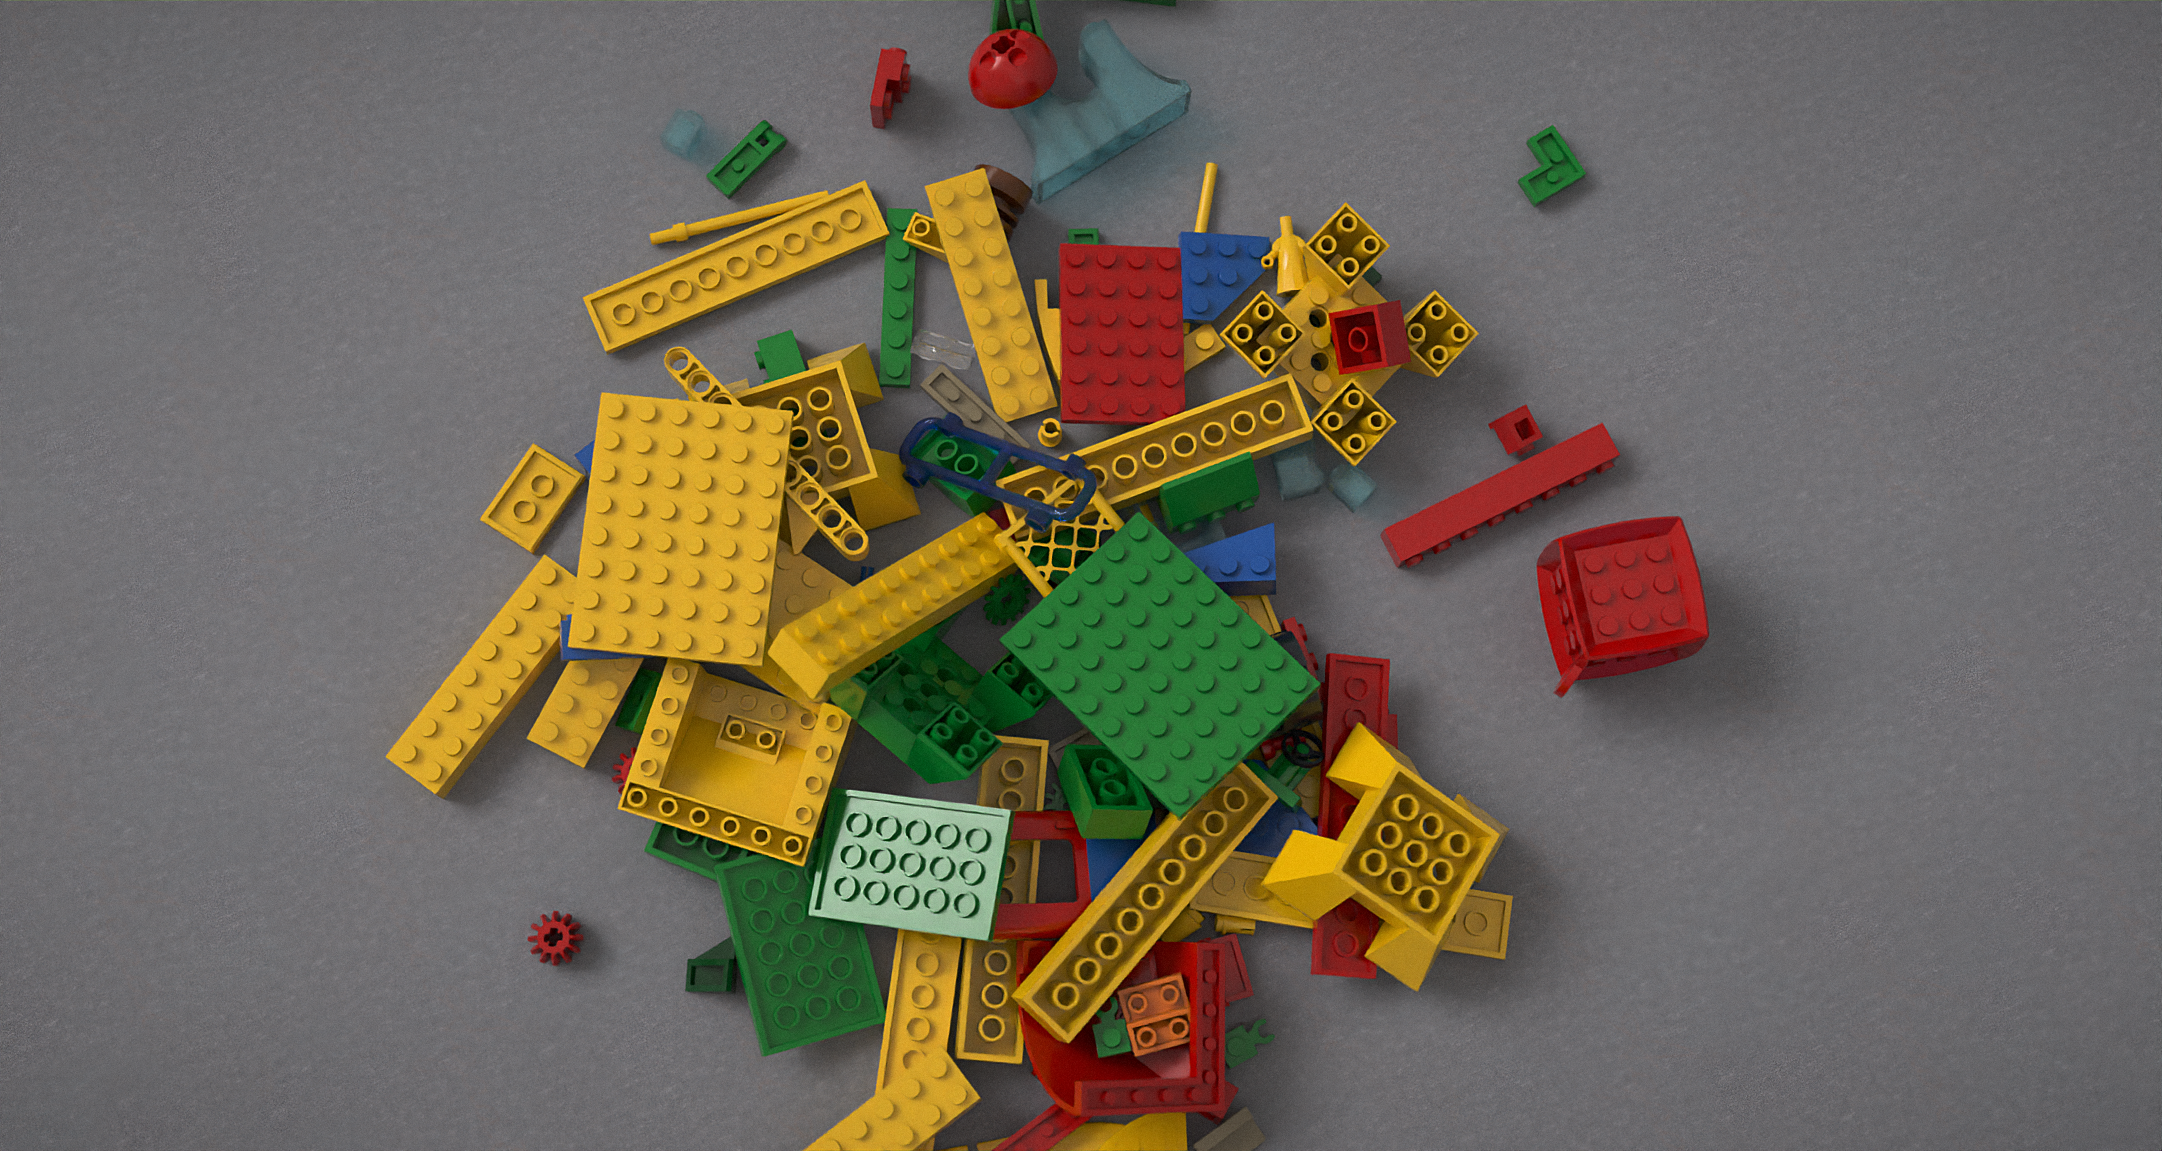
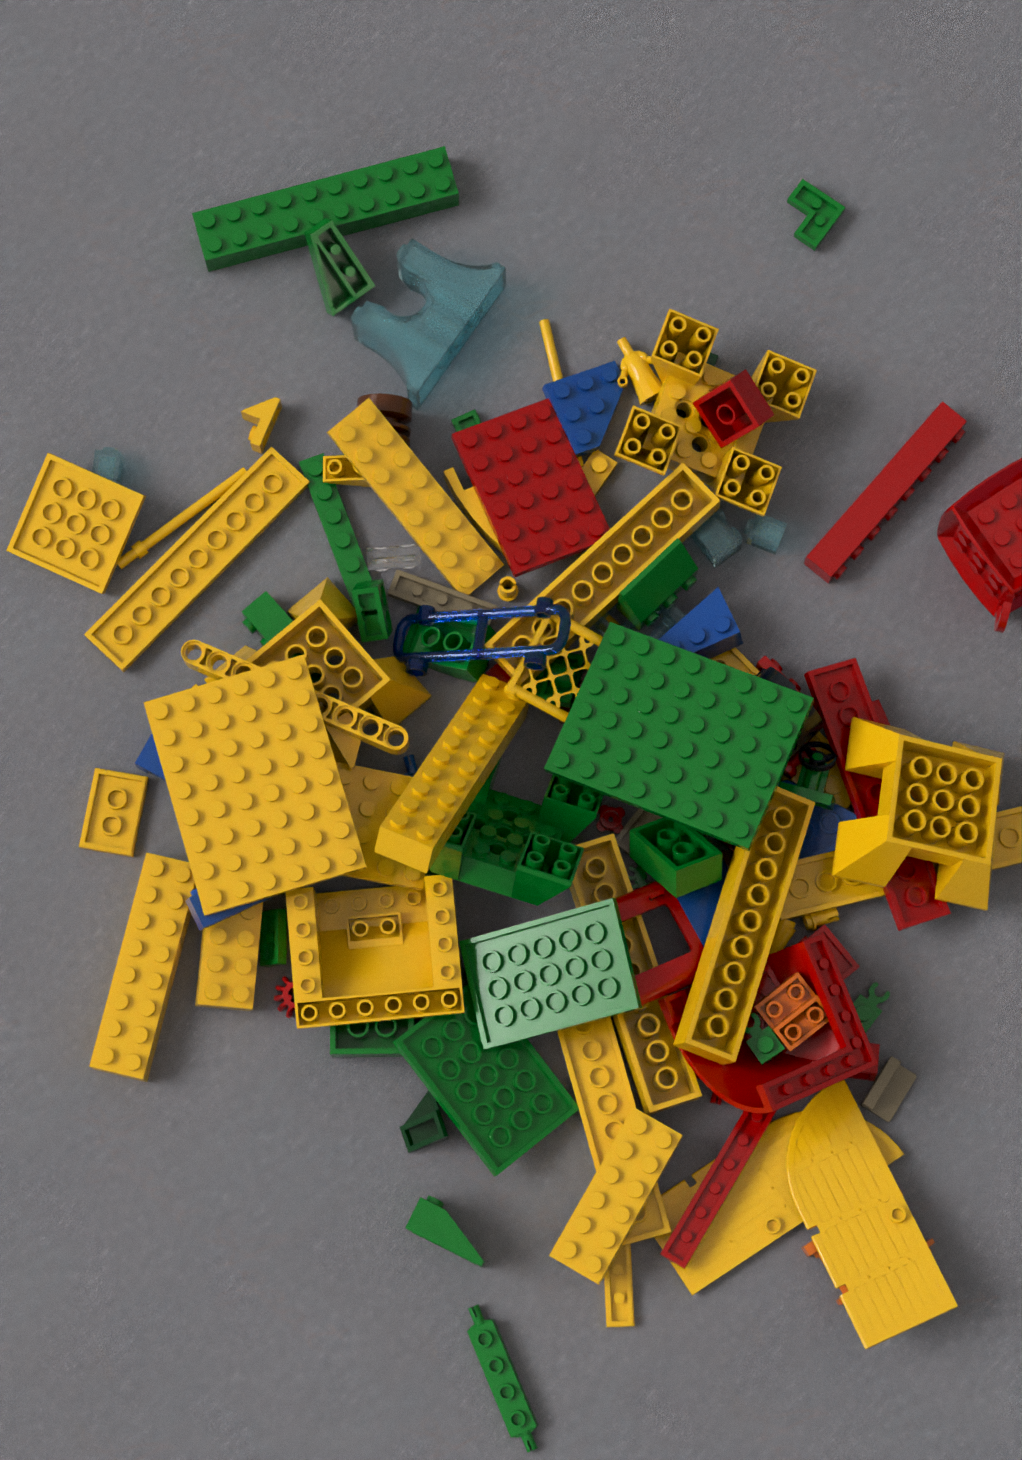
camera: 15 degrees left, 0 degrees up
(548, 930) = (279, 1150): red gear -> none
(624, 177) = (76, 523): none -> yellow plate
(681, 1089) = (437, 1226): none -> green slope
(746, 159) = (167, 469): green plate -> none
(872, 146) = (265, 417): none -> yellow slope
(890, 84) = (259, 358): red plate -> none
(895, 396) = (372, 610): none -> green brick
(999, 610) = (530, 747): green gear -> none
(1011, 69) = (355, 310): red piece -> none
(1053, 714) = (617, 815): none -> red plate
(1517, 430) = (877, 435): red brick -> none

